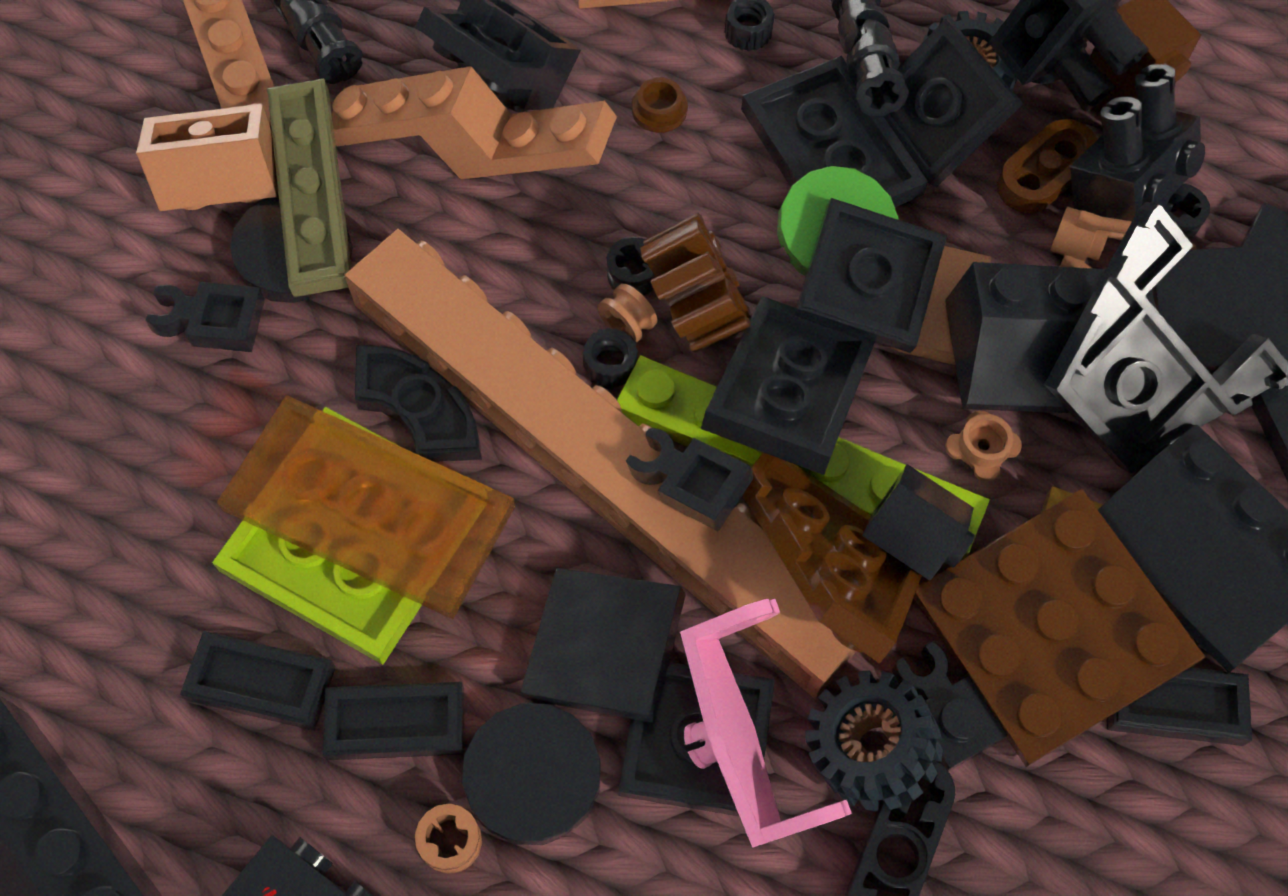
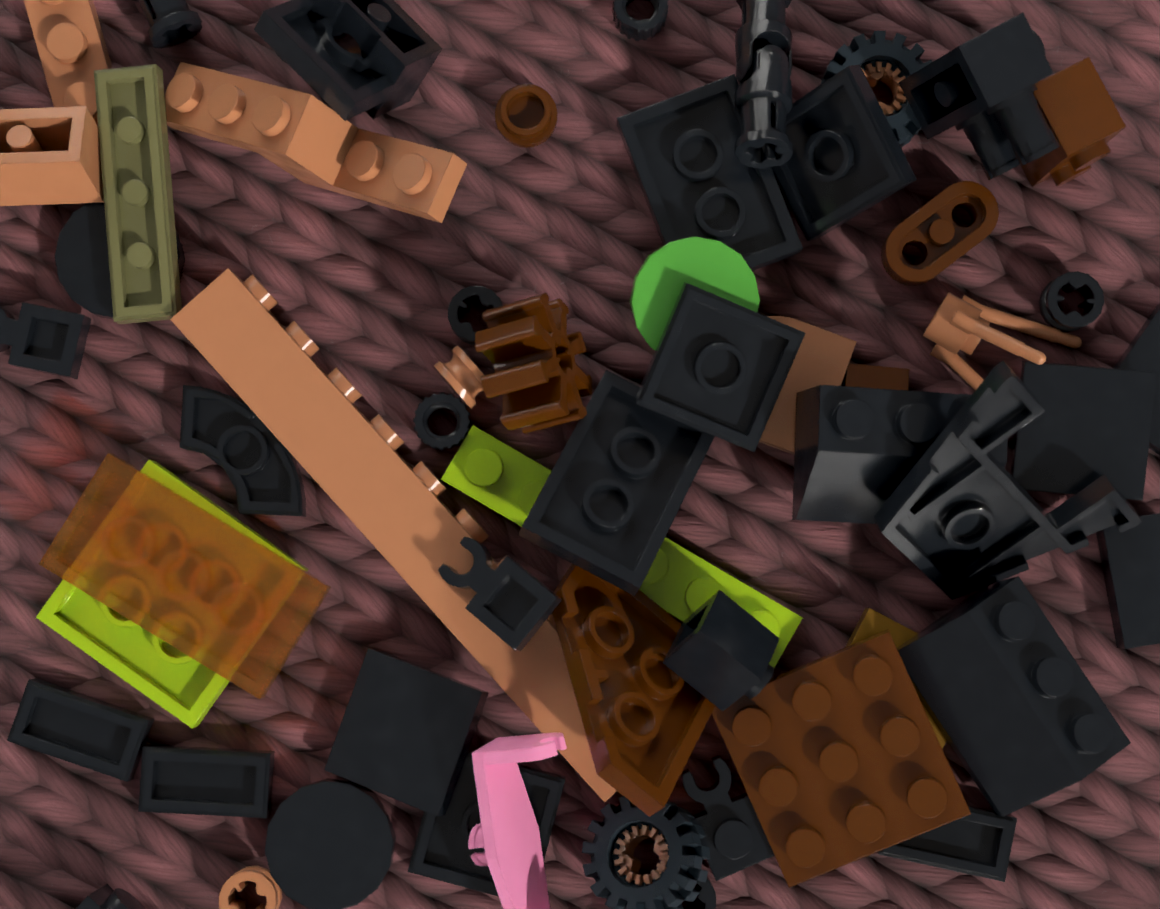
camera: 10 degrees right, 20 degrees up
(994, 432) = (809, 573): nougat plate -> none
(1142, 151) = (1034, 250): black brick -> none

